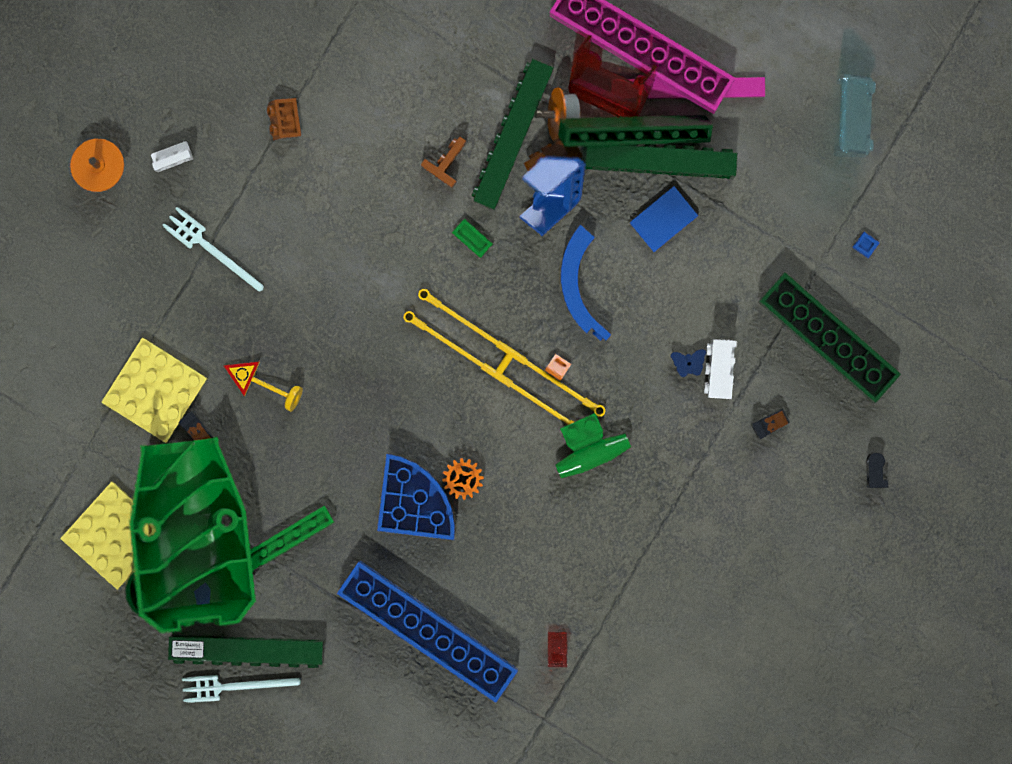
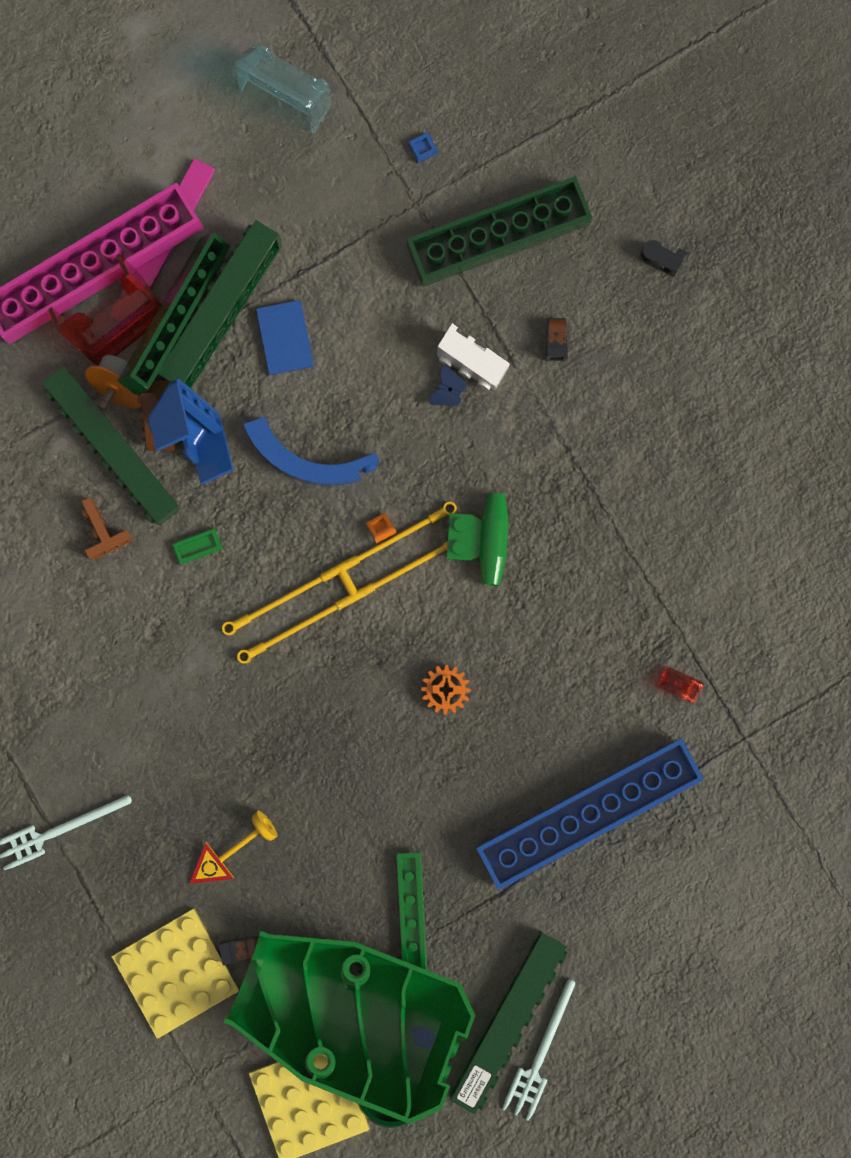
camera: 70 degrees left, 5 degrees down
(414, 501) = (443, 754): blue brick -> none

